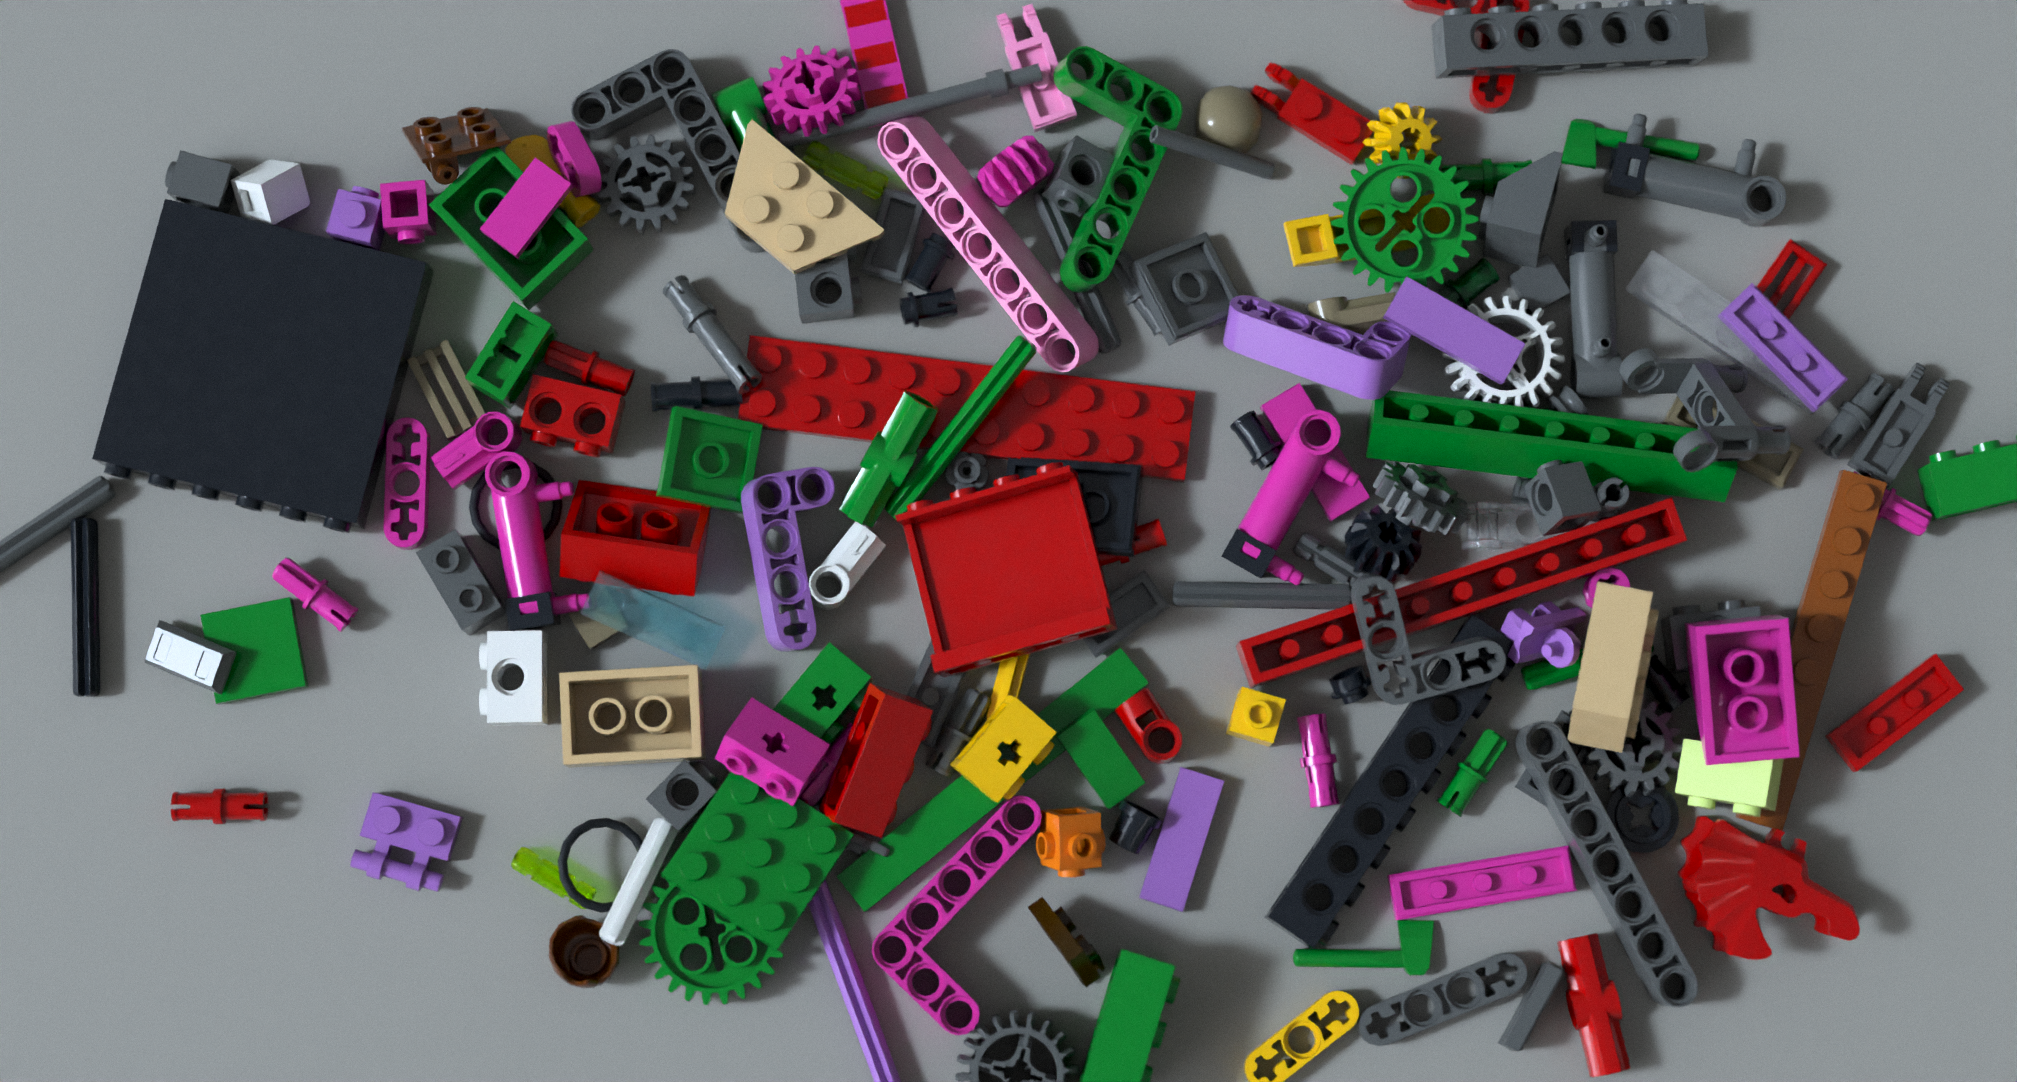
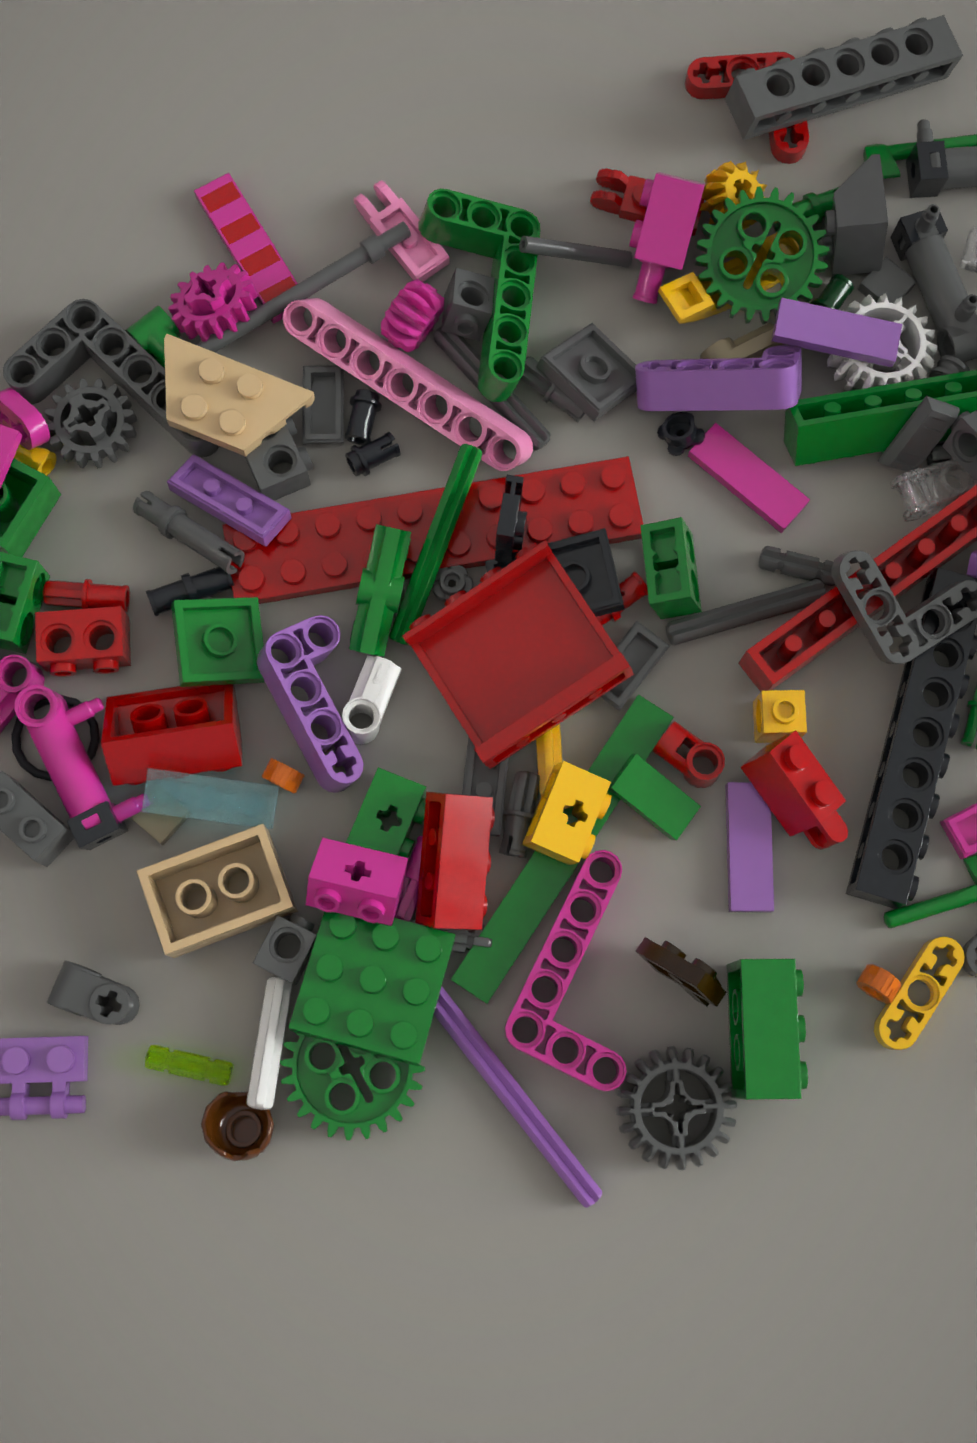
camera: 20 degrees left, 5 degrees down
(474, 776) = (88, 992): none -> dark grey piece
(530, 701) = (118, 908): white brick -> none
(565, 850) = (191, 1035): black piece -> none
(732, 618) = (283, 776): none -> orange axle
(764, 312) = (229, 500): none -> medium lavender tile
(845, 170) = (268, 362): clear neon green axle -> none
(1041, 435) = (511, 520): none -> black plate
(1070, 840) = (654, 878): orange brick -> none
(1134, 826) = (704, 849): black piece -> none
(1195, 528) = (670, 568): none -> green brick
(1229, 118) = (580, 222): dark tan hair -> none
(1246, 799) = (798, 790): none -> red brick
(1254, 372) = (680, 423): none -> black plate
(1256, 440) = (696, 481): black pin -> none
(1262, 1017) = (879, 983): none -> orange axle
(1282, 497) = (726, 564): dark pink piece -> none
(1313, 159) = (666, 230): none -> dark pink brick
(1318, 760) = (845, 739): dark pink pin -> none
(1350, 685) = (850, 664): black plate -> none
(1382, 544) = (836, 530): black gear -> none
(1421, 498) = (858, 482): dark grey gear -> none
(1503, 468) = (919, 434): none -> dark grey tile

